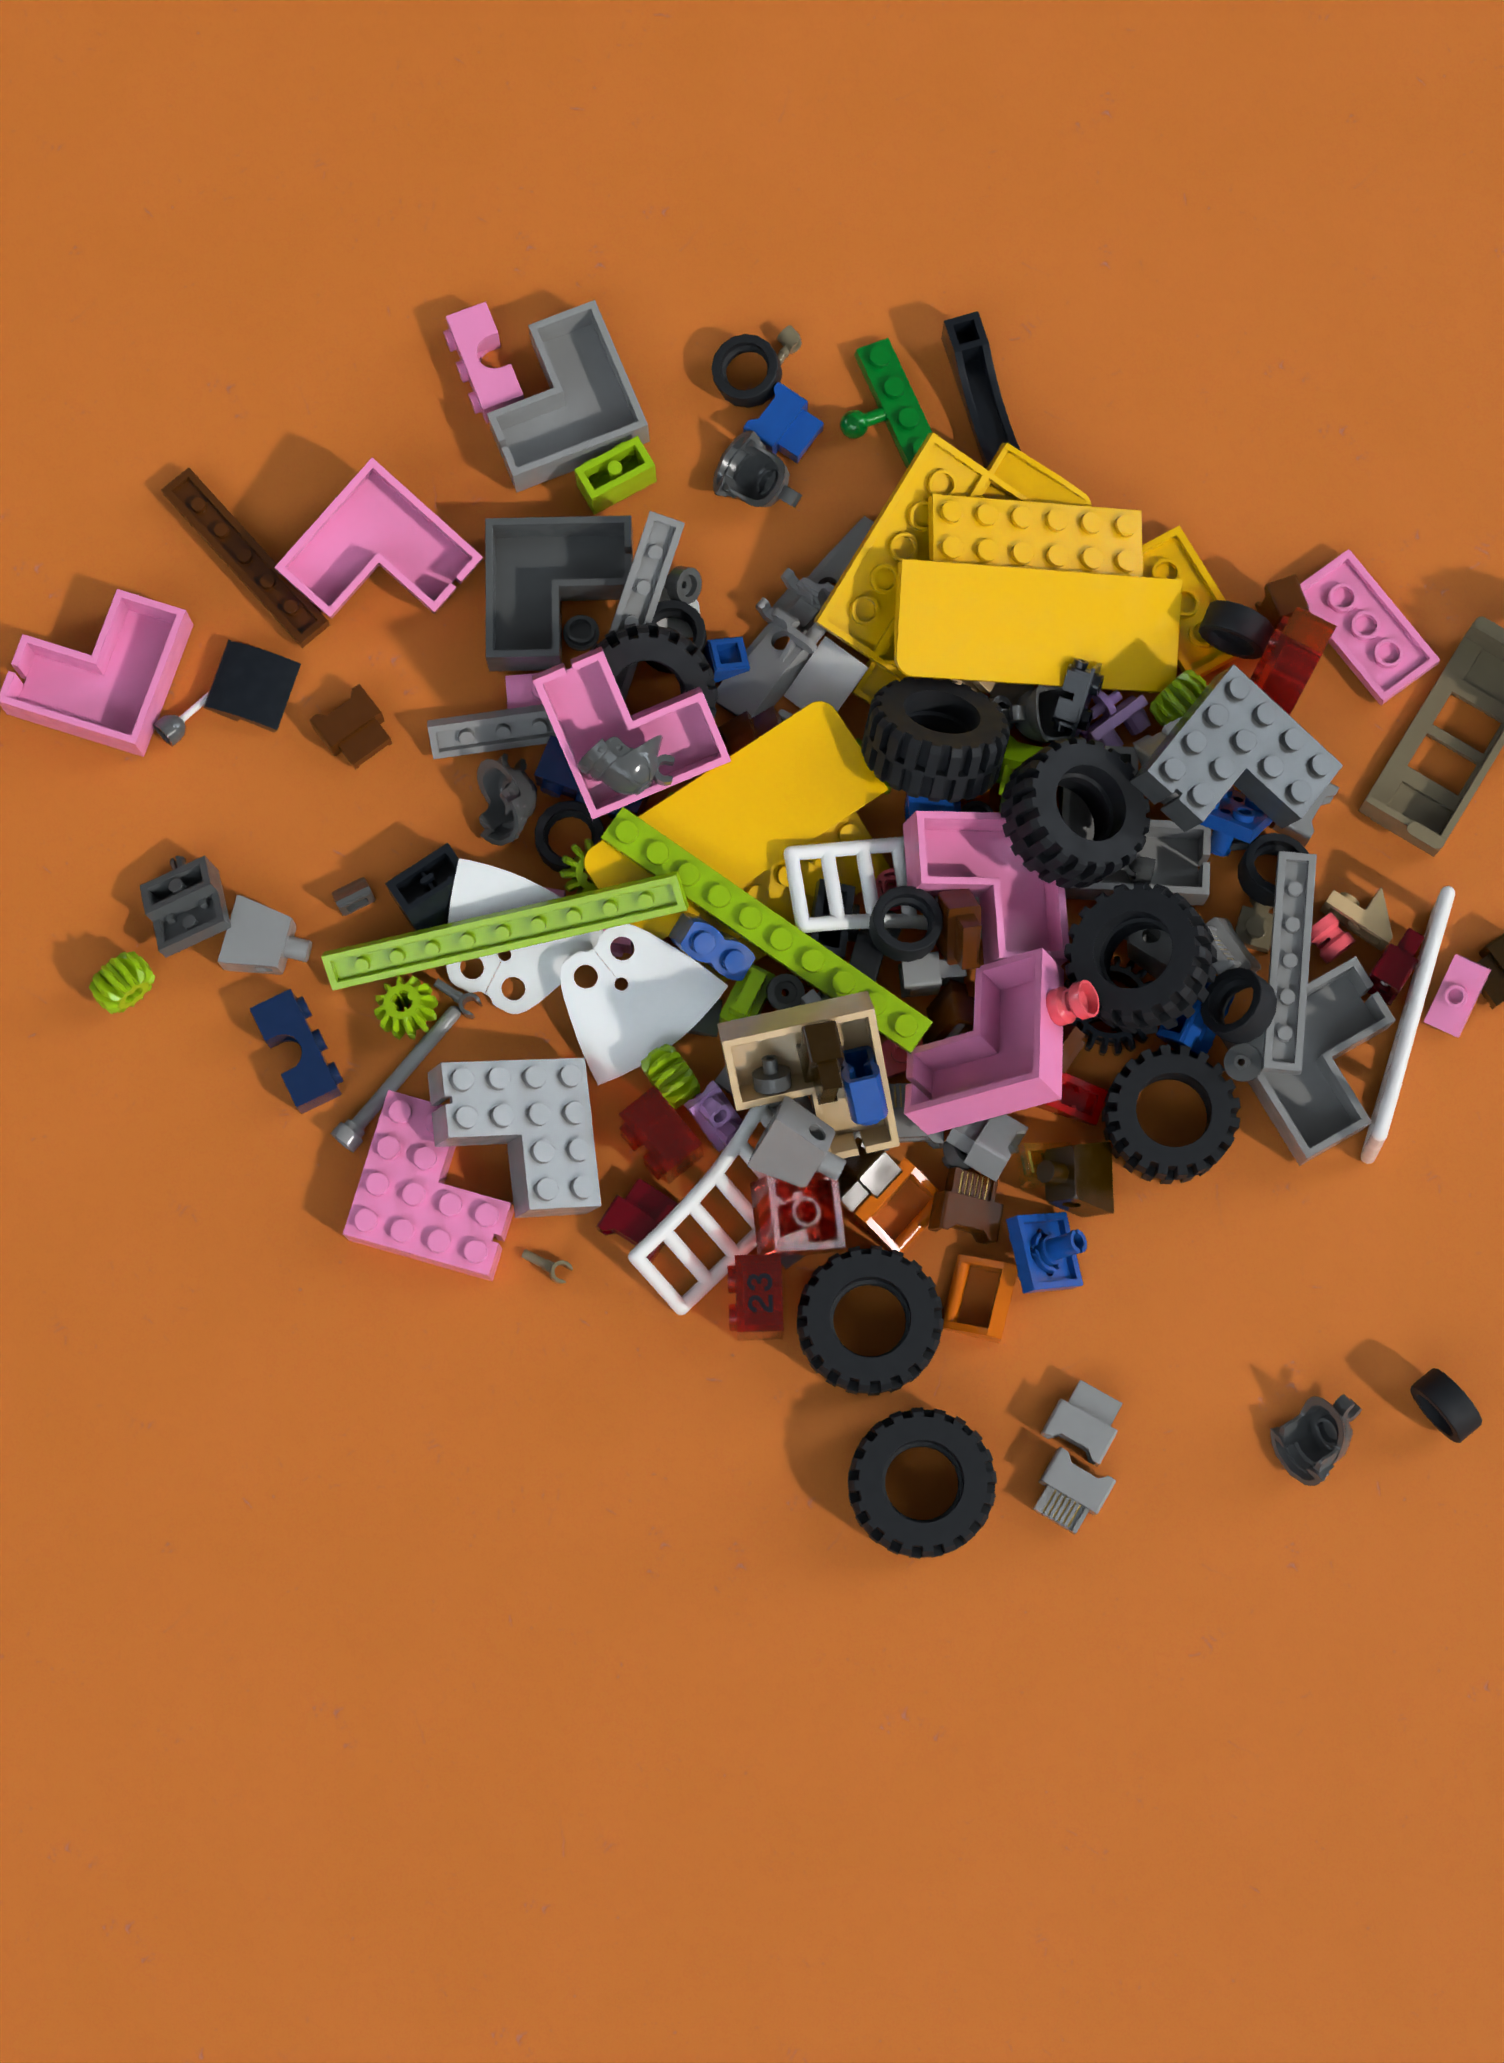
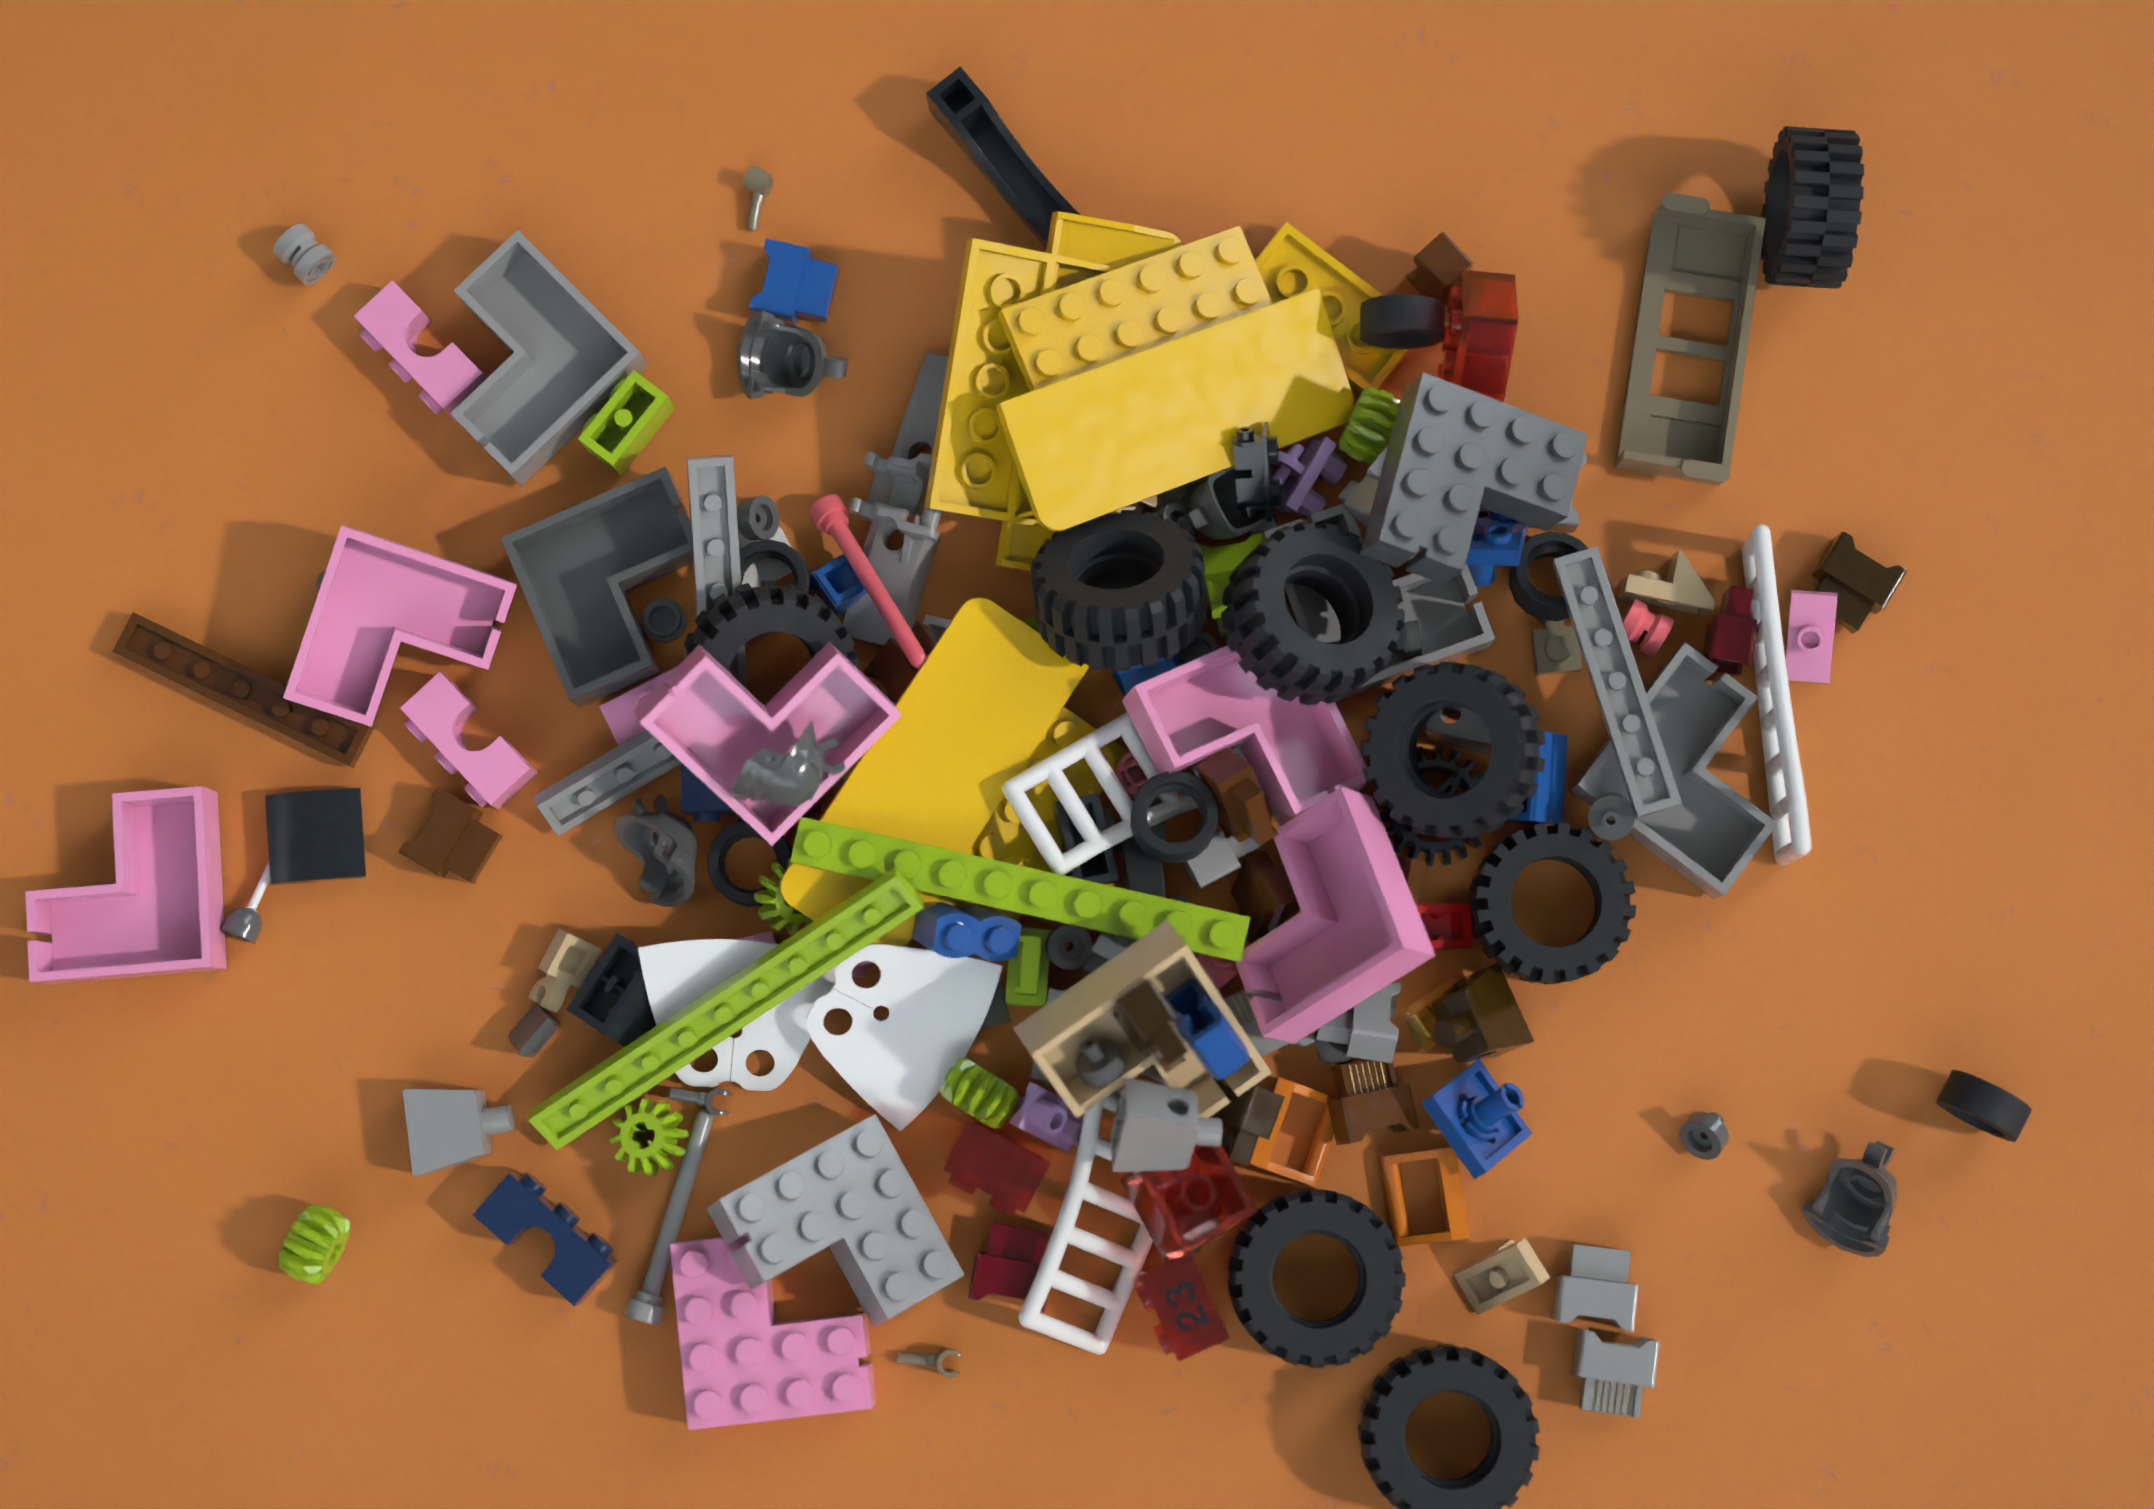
camera: 20 degrees left, 5 degrees up
(185, 904) = (348, 1124): dark grey plate -> none
(397, 854) = (566, 964): none -> tan plate
(406, 690) = (440, 714): none -> bright pink arch
(427, 256) = (307, 257): none -> light grey wheel
(735, 347) = (697, 220): black tyre -> none
(739, 606) = (831, 516): none -> coral piece
(826, 677) = (963, 562): white sticker -> none
(894, 400) = (908, 207): green plate -> none
(1014, 1380) = (1501, 1275): none -> tan slope
(1075, 1002) = (1405, 836): coral wheel -> none
(1217, 1340) = (1704, 1135): none -> dark grey tile
(1230, 948) = (1544, 691): light grey piece -> none
(1257, 1017) = (1611, 756): black tyre -> none
(1370, 628) = (1551, 256): bright pink plate -> none

